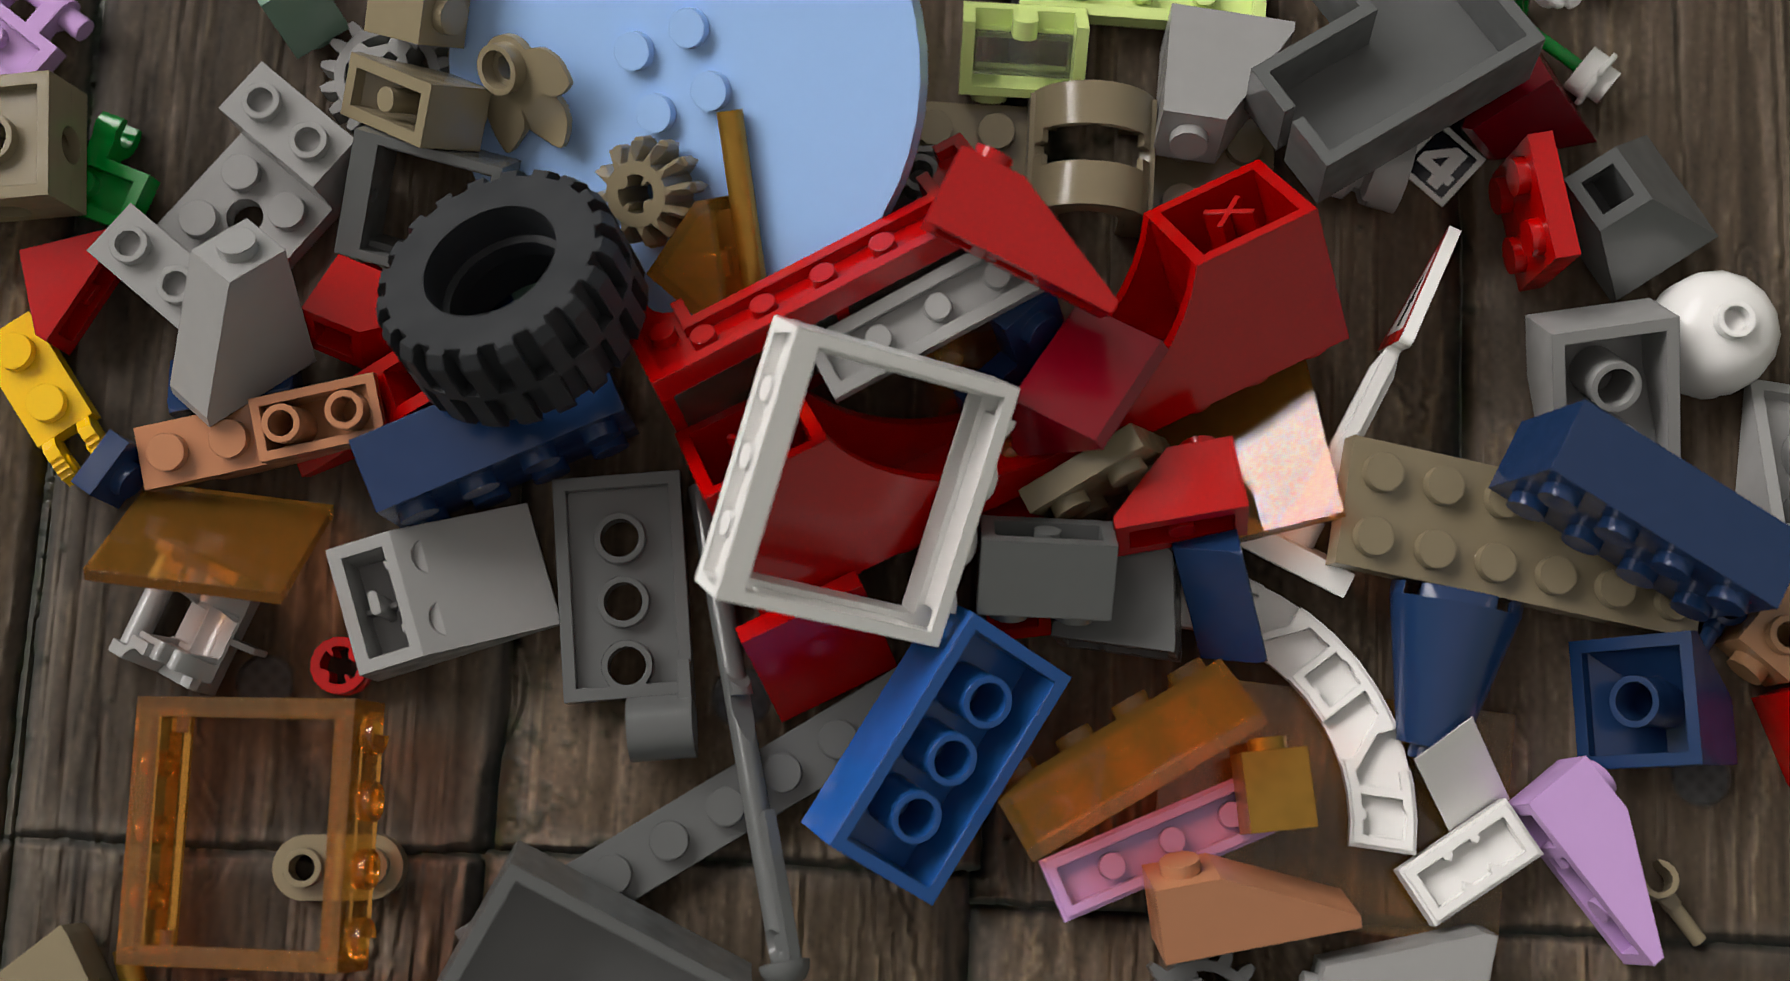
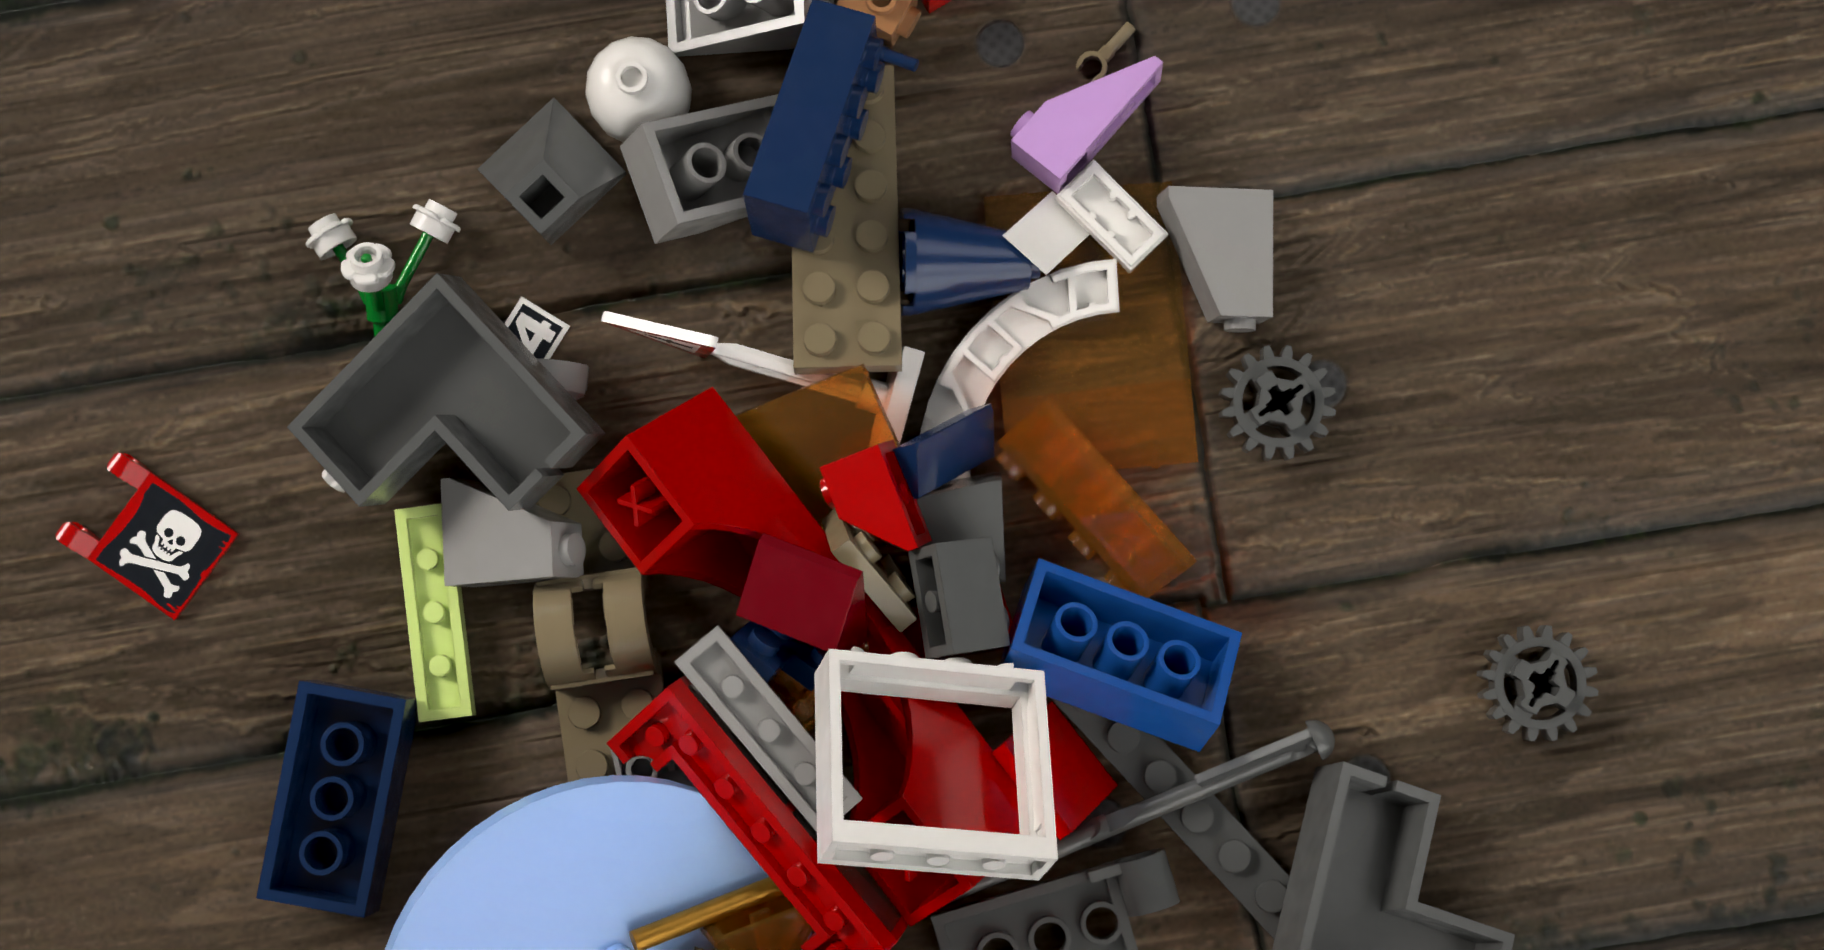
camera: 100 degrees left, 5 degrees up
(1008, 224) = (695, 691): red slope -> none
(1020, 49) = (508, 705): yellowish green window -> none
(1111, 862) = (1144, 451): lavender tile -> none
(1225, 906) = (1188, 397): nougat slope -> none
(1273, 786) = (1090, 380): pearl gold brick -> none
(1528, 109) = (480, 260): dark red slope -> none
(1535, 212) = (555, 257): red plate -> none
(1650, 703) = (956, 93): dark blue slope -> none

